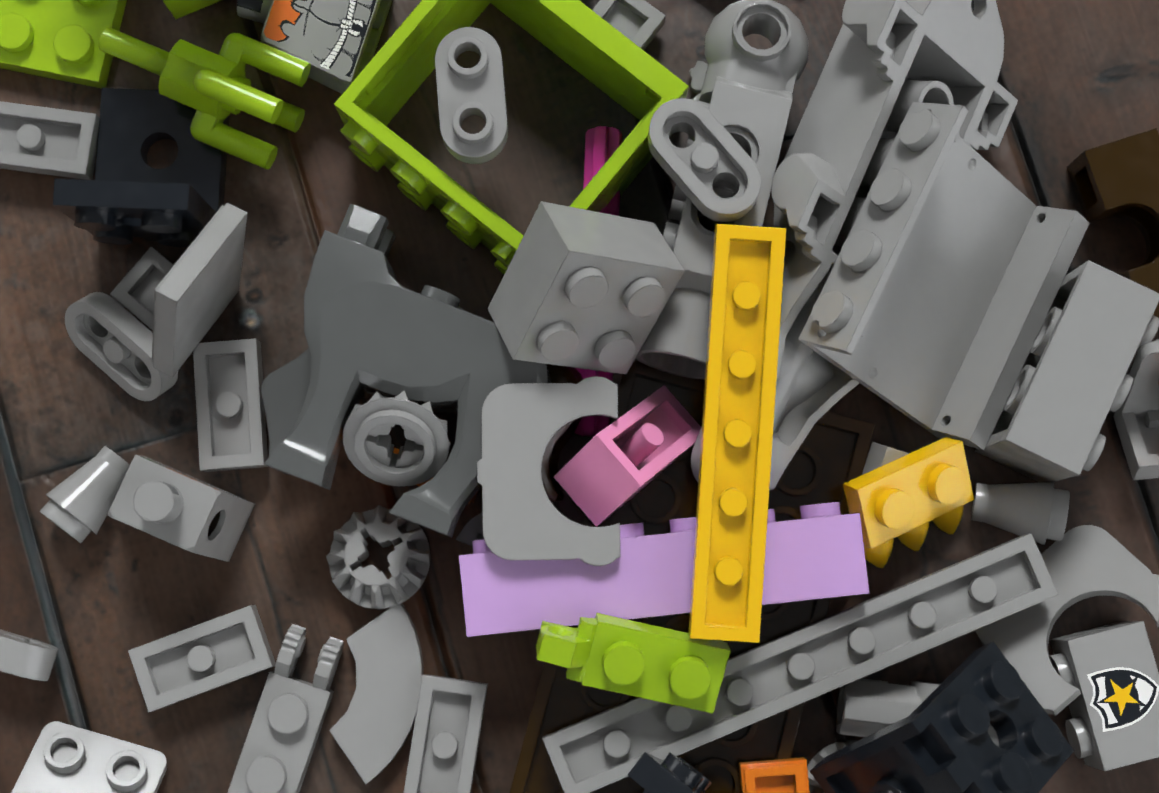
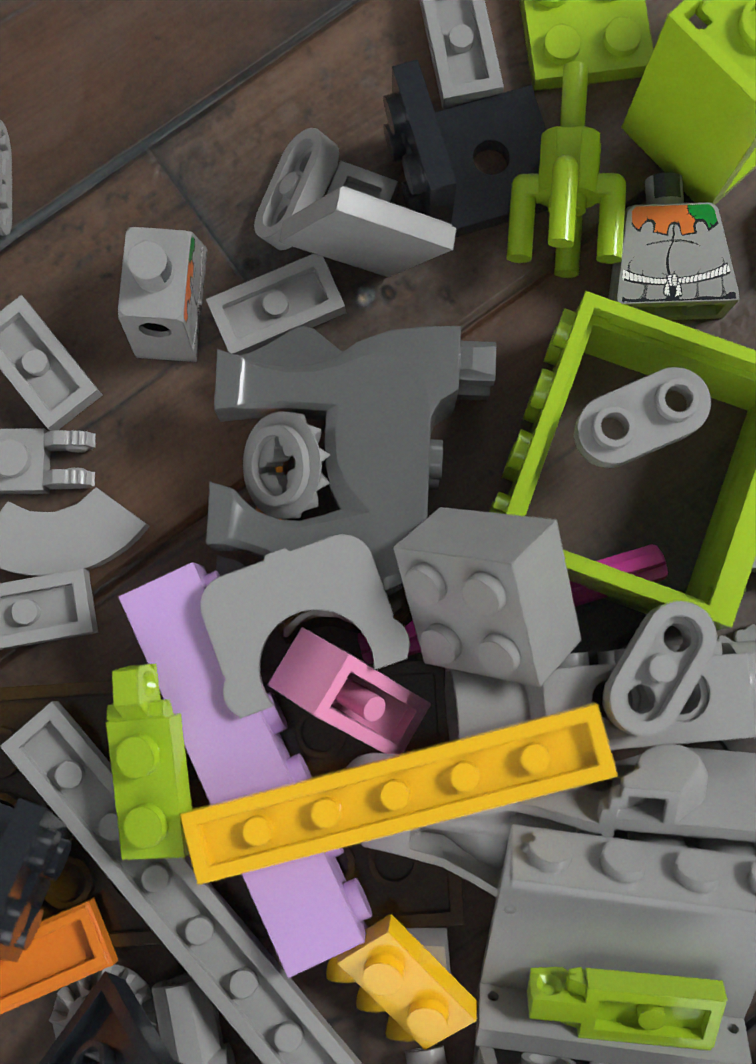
camera: 75 degrees right, 0 degrees up
(86, 496) = (146, 204): light grey cone -> none
(407, 562) = (149, 490): light grey gear -> none
(991, 299) = (629, 1005): none -> lime hinge

